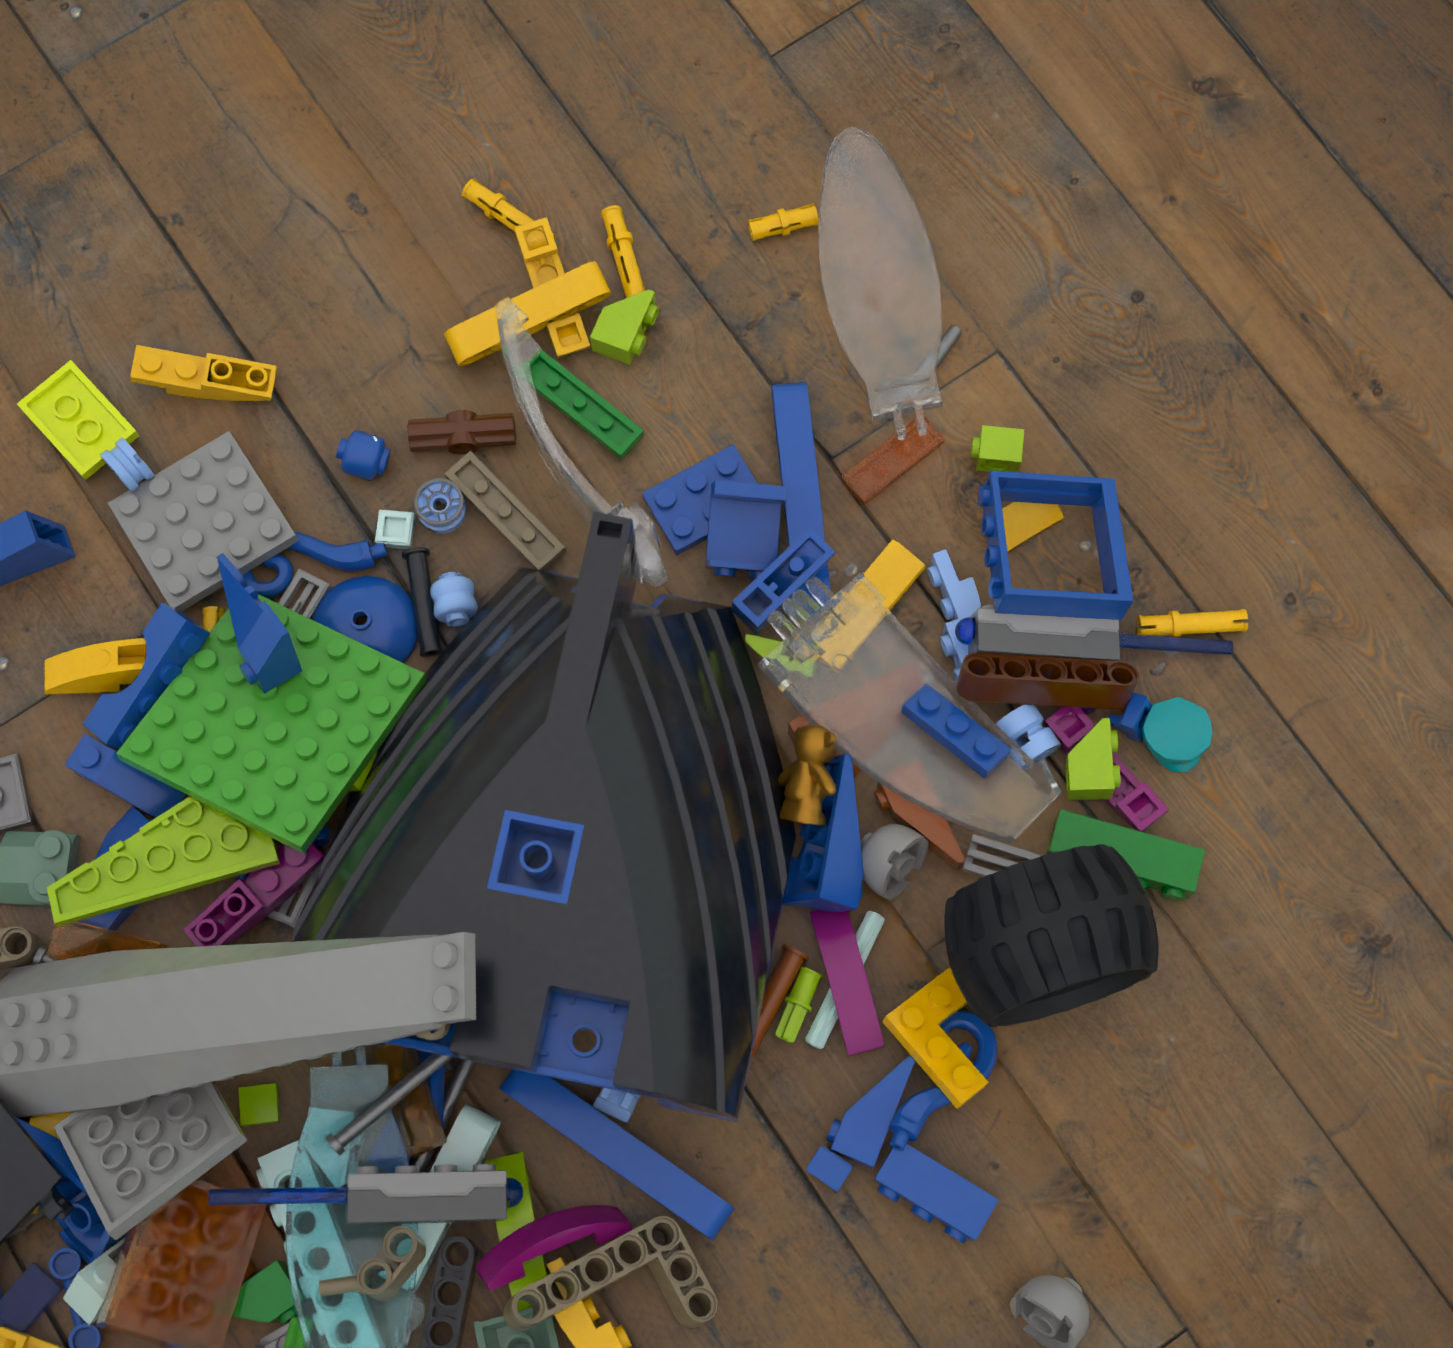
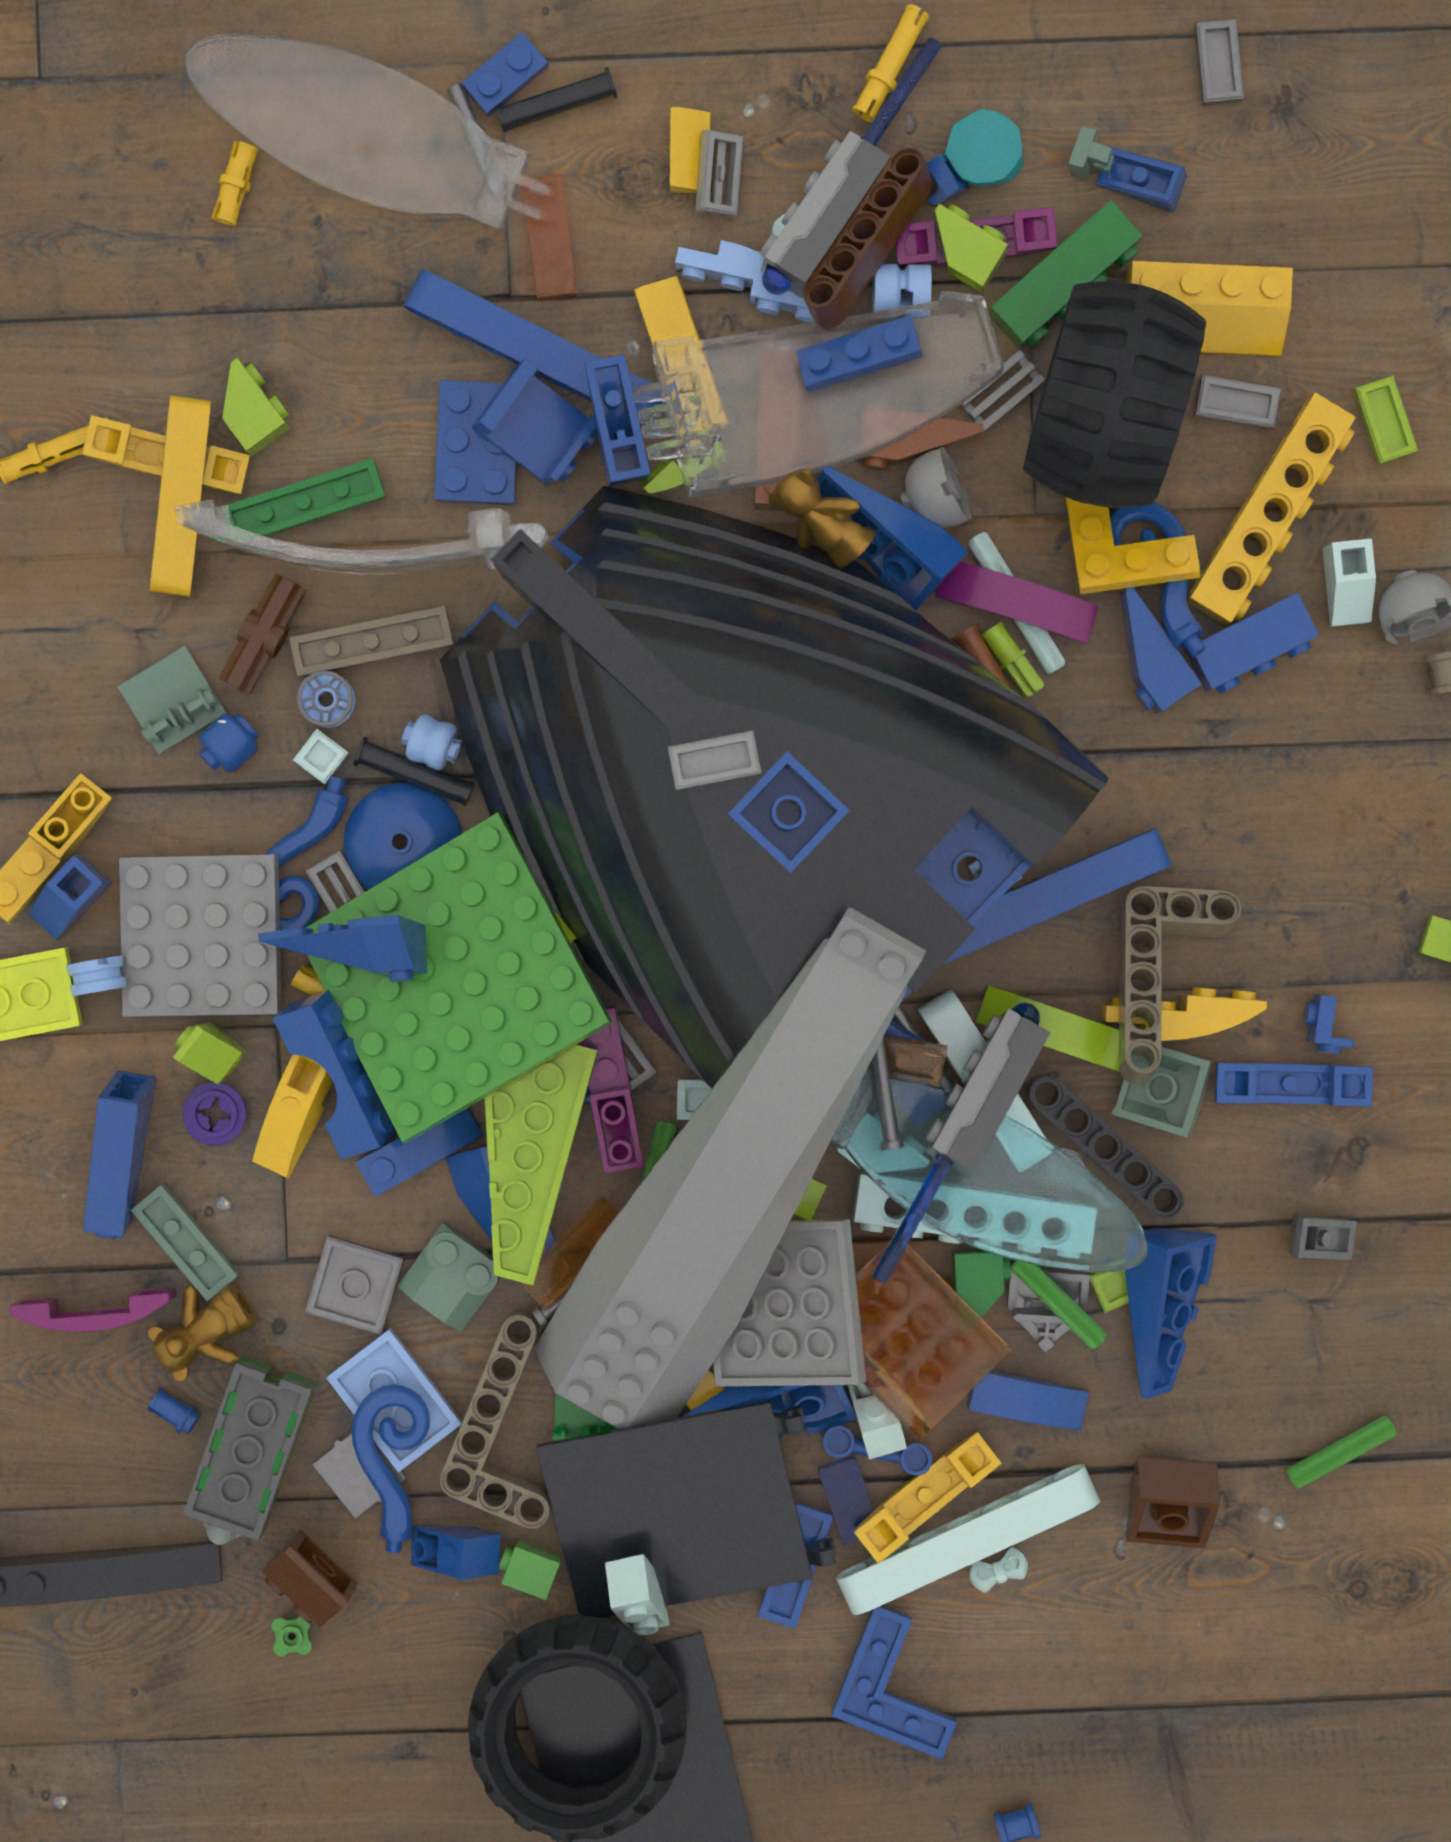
camera: 65 degrees left, 15 degrees up
(55, 607) = (200, 1125): none -> dark purple gear
(112, 577) = (209, 1051): none -> lime slope
(179, 410) = (68, 895): none -> blue slope
(372, 399) = (171, 700): none -> sand green hinge
(396, 1267) = (1020, 1157): dark tan beam -> none
(505, 1260) = (1081, 1006): magenta slope -> none
(540, 771) = (714, 760): none -> light grey tile
(620, 243) = (170, 362): yellow pin -> none
(829, 1168) = (1176, 723): blue slope -> none
(990, 357) = (505, 74): none -> blue plate
(995, 403) = (557, 101): none -> black pin
(998, 449) = (606, 129): lime brick -> none
(1036, 1240) = (1349, 581): none -> light aqua slope
(1039, 557) = (705, 173): none -> light grey tile
(1061, 490) = (770, 87): blue window -> none
(1119, 1056) = (1237, 402): none -> light grey tile
(1148, 1125) = (1316, 418): none -> yellow brick
(1186, 993) = (1242, 305): none -> yellow slope
(1187, 1188) = (1385, 420): none -> lime tile
(1228, 813) = (1089, 154): none -> sand green tile
(1241, 870) = (1144, 179): none -> blue slope
(1370, 872) = (1219, 62): none -> flat silver tile

